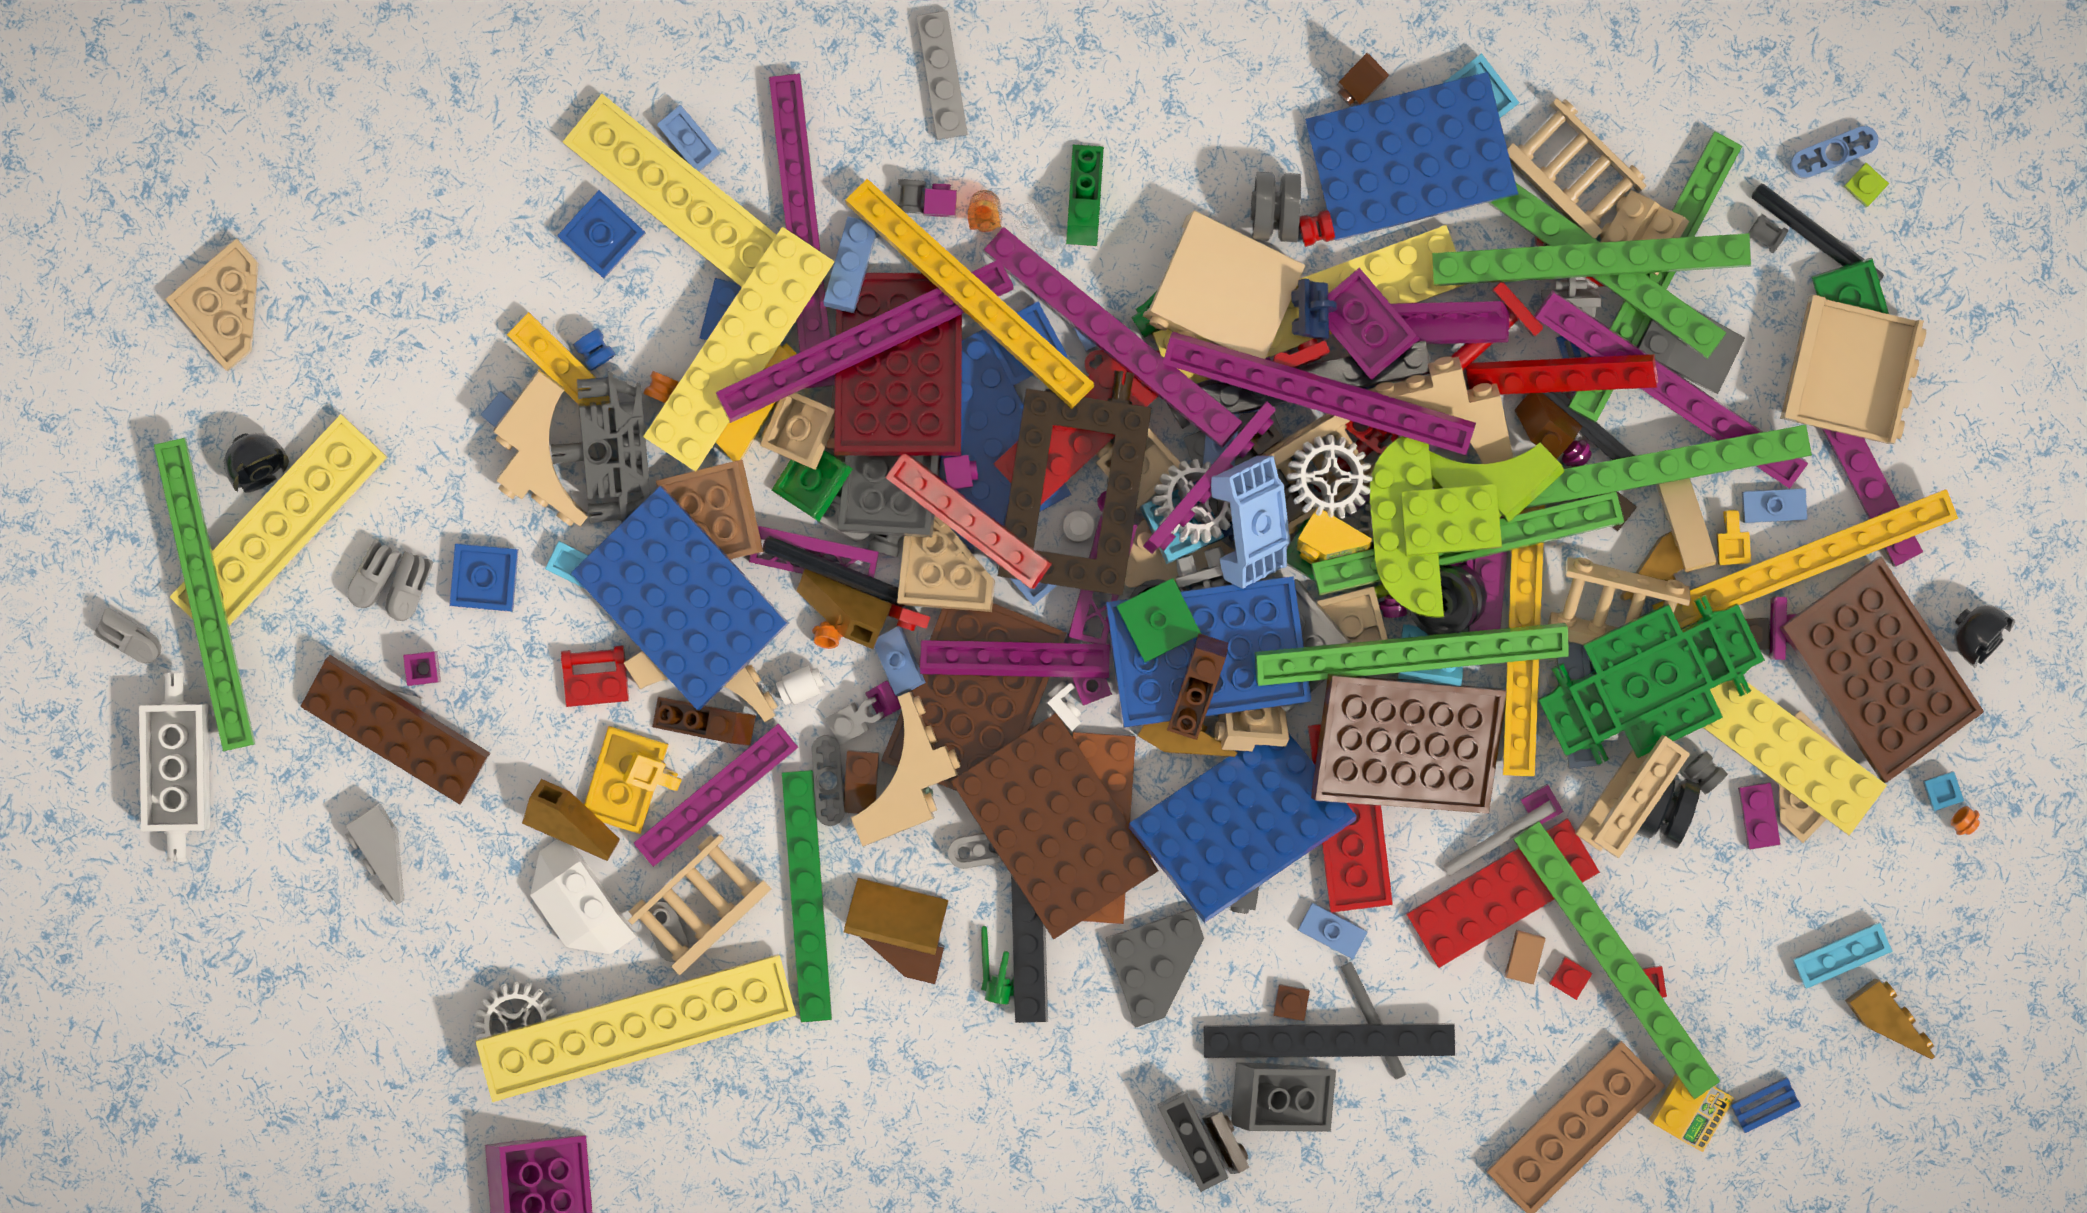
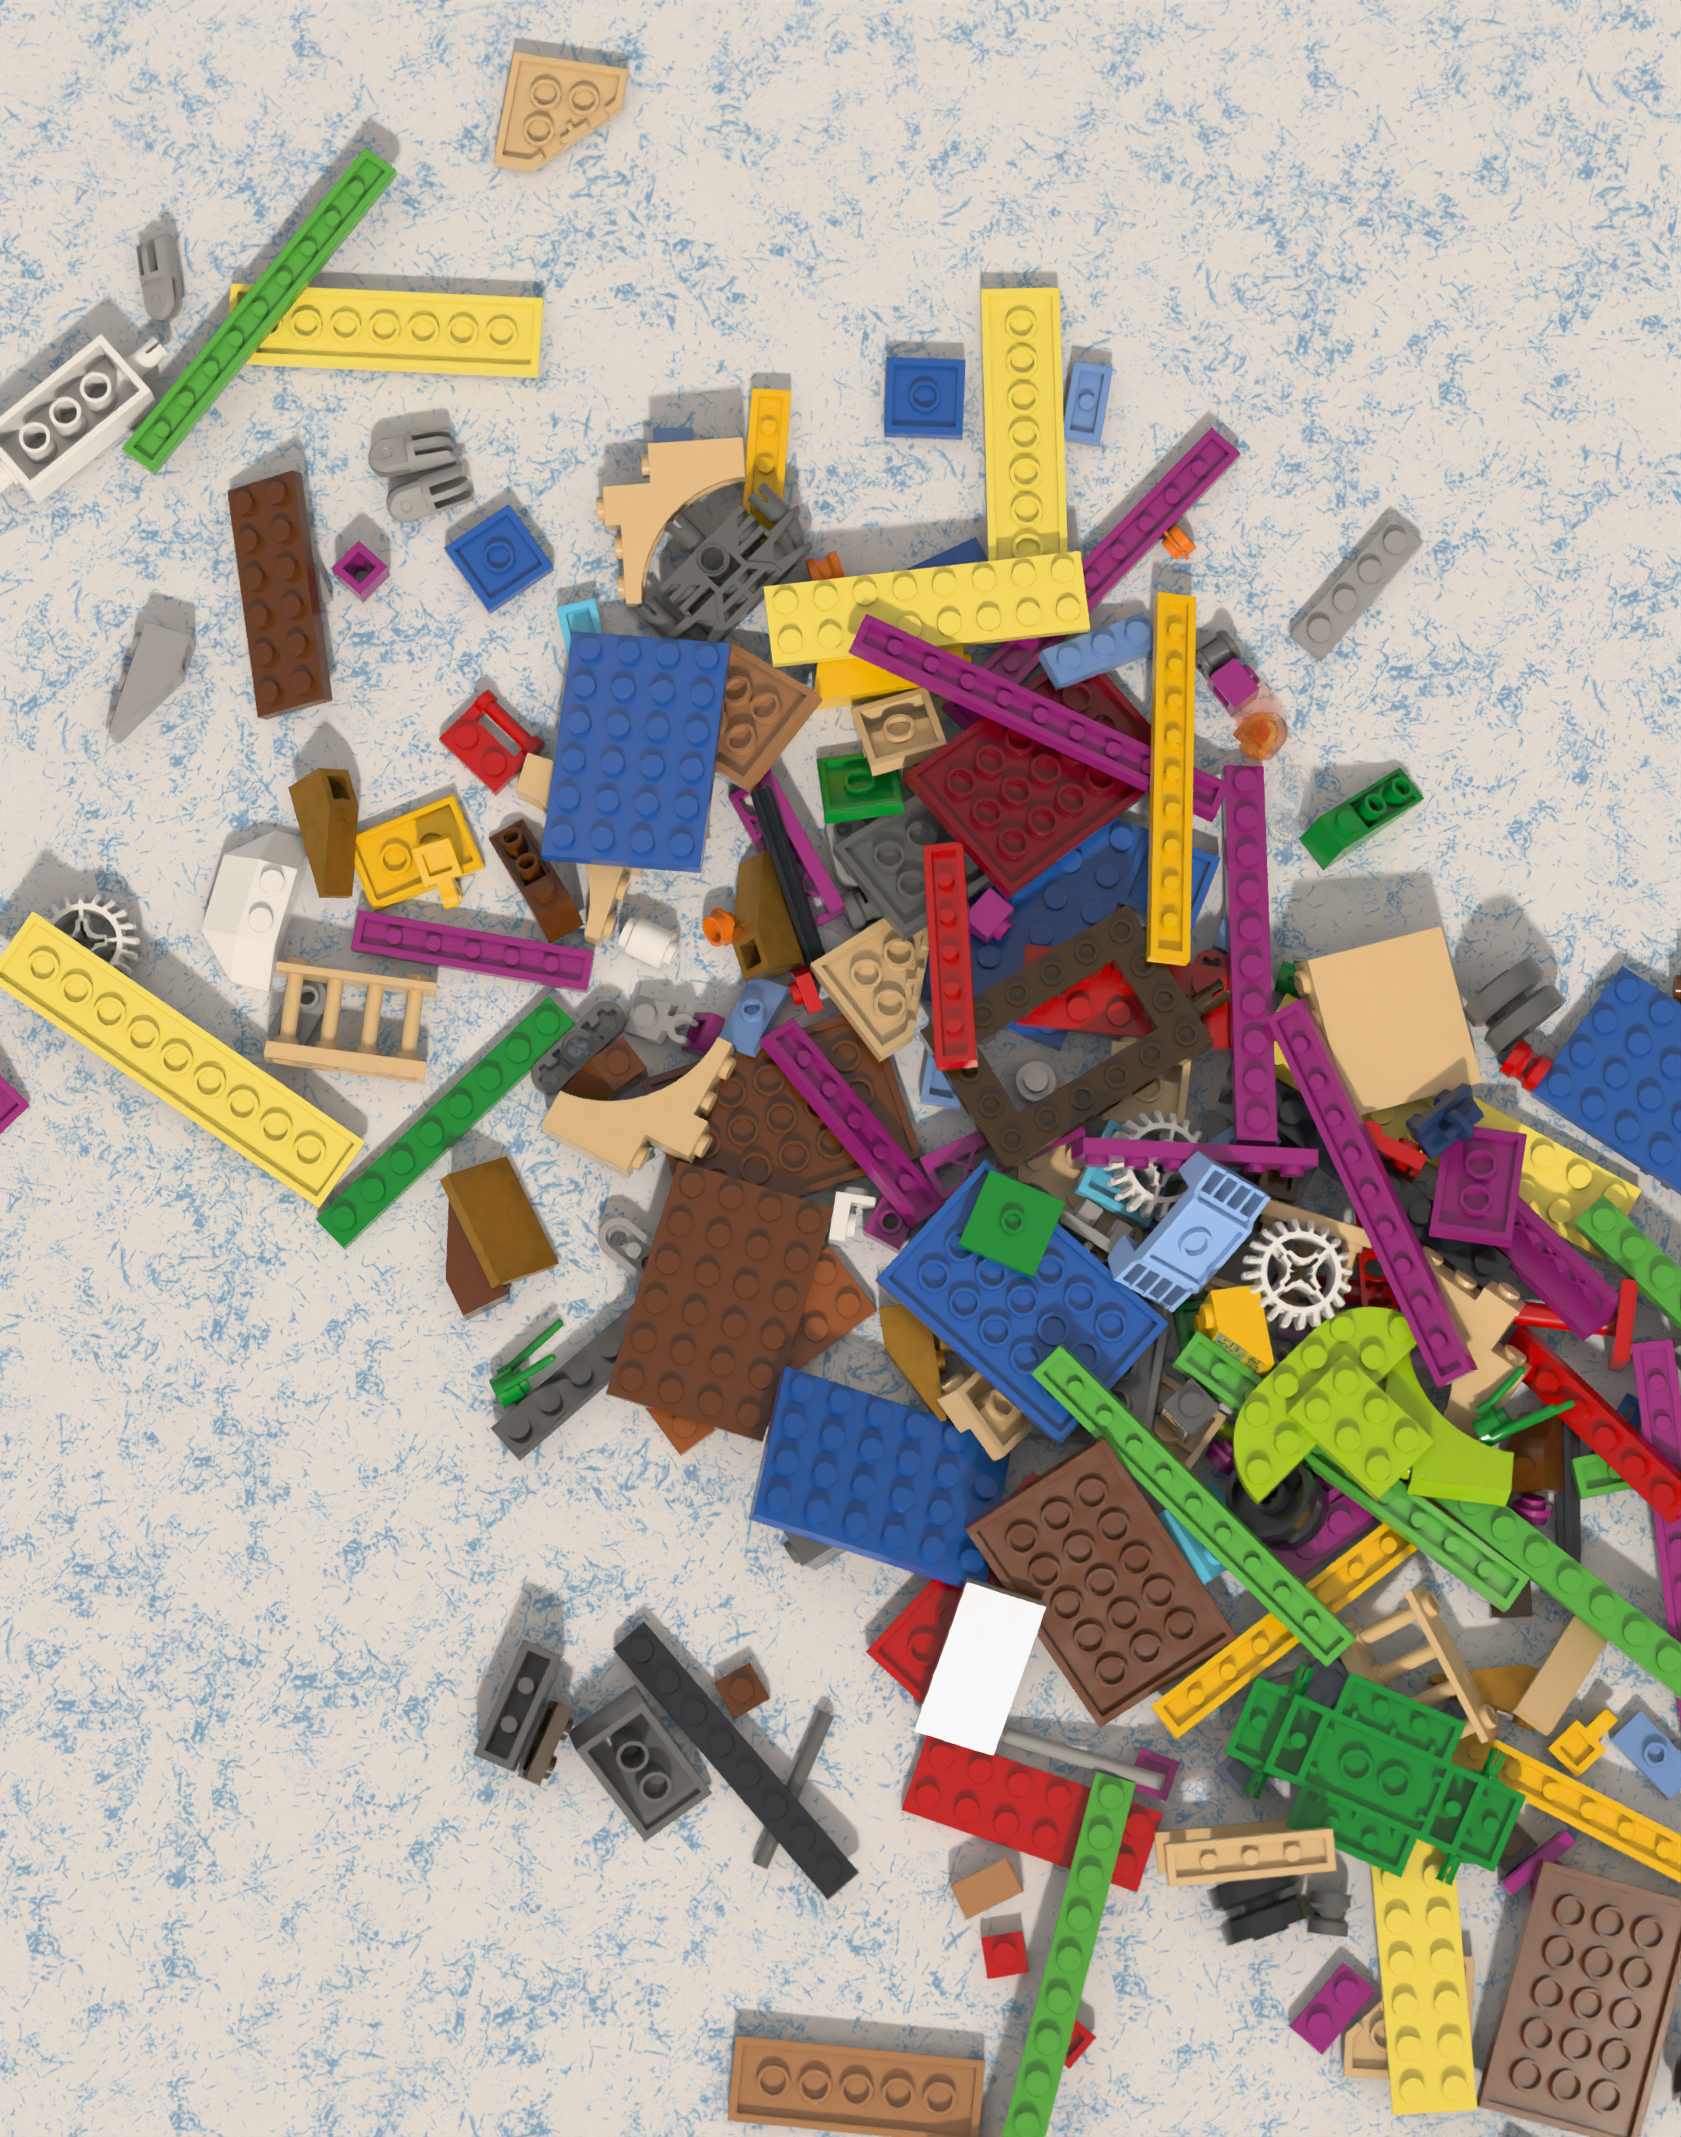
camera: 55 degrees right, 10 degrees down
(253, 461) = (427, 256): black cylinder -> none
(589, 344) = (808, 481): blue wheel -> none
(822, 158) = (1178, 543): none -> orange plate
(1154, 963) = (666, 1520): dark grey plate -> none
(1198, 686) = (979, 1315): reddish brown slope -> none
(1332, 930) = (848, 1671): medium blue plate -> none
(1353, 608) = (1188, 1410): none -> dark grey brick
(1397, 855) = (980, 1666): none -> tile
(1514, 437) = (1497, 1425): none -> green plant

